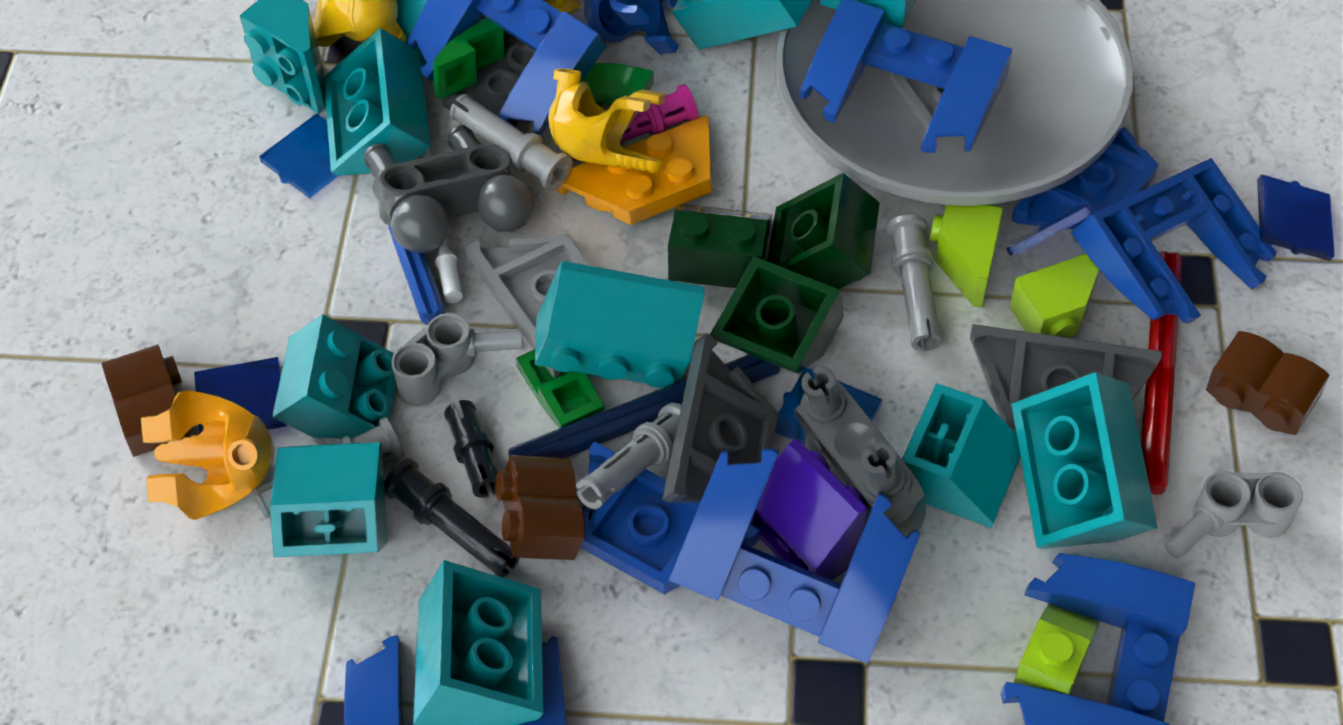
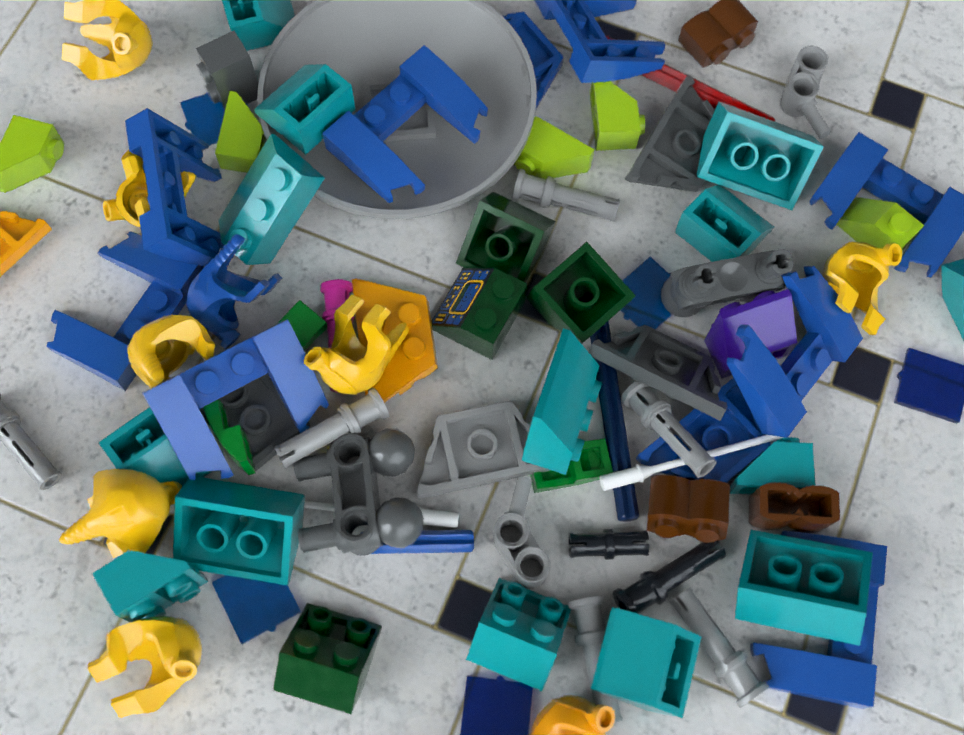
camera: 75 degrees left, 15 degrees up
(228, 91) = (170, 647): none -> yellow piece
(260, 222) = (327, 658): none -> dark green slope
(362, 608) = (730, 664): none -> light grey pin
(568, 444) = (640, 473): none -> white piece
(581, 622) = (802, 510): none -> reddish brown brick
(634, 603) = (781, 462): none -> teal slope
(953, 616) = (856, 274): none -> yellow piece
(1049, 229) = (567, 95): clear blue piece -> none

